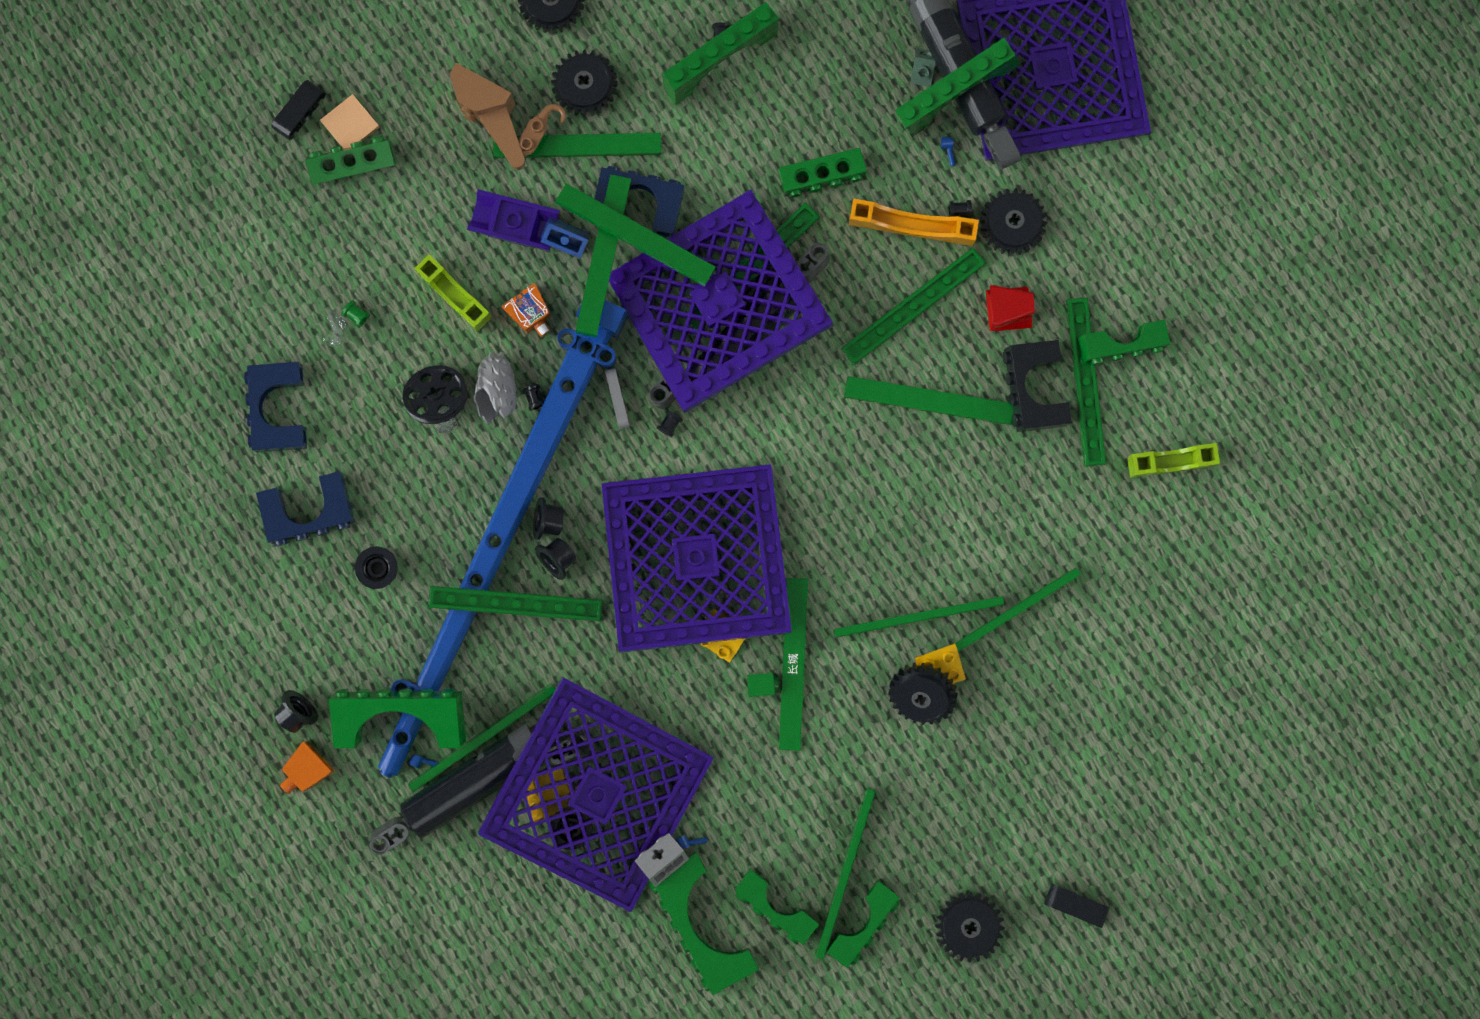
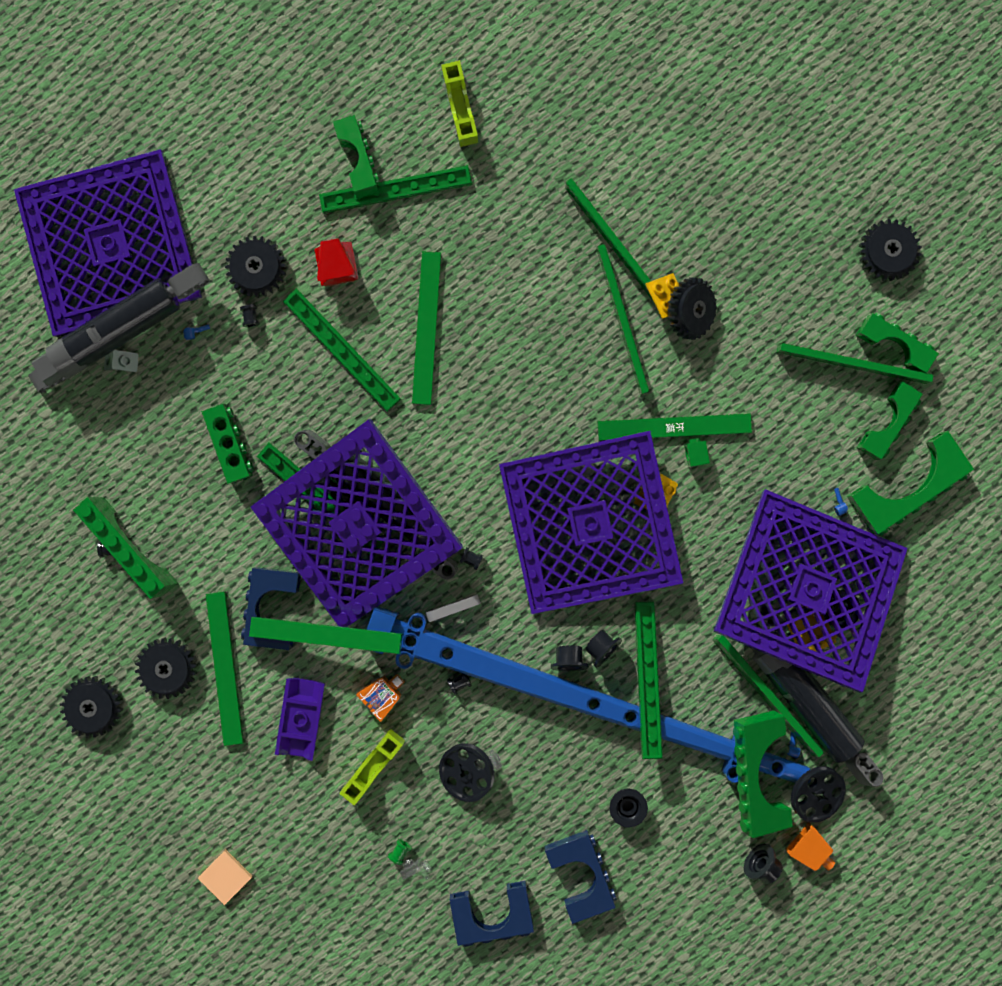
camera: 85 degrees left, 5 degrees up
(297, 109) = (216, 926): black beam -> none
(319, 173) = (274, 900): green brick -> none
(375, 781) = (817, 801): none -> black wedge
(492, 106) = (197, 749): medium nougat slope -> none
(495, 388) = (455, 719): light grey head -> none
(565, 237) = (311, 671): blue brick -> none
(635, 234) = (303, 608): green tile -> none
(672, 858) = (860, 516): light grey brick -> none
(940, 228) = (264, 385): light orange arch -> none
(990, 63) = (111, 297): green arch -> none
(1028, 413) = (384, 249): black arch -> none
(1076, 905) = (862, 159): black beam -> none

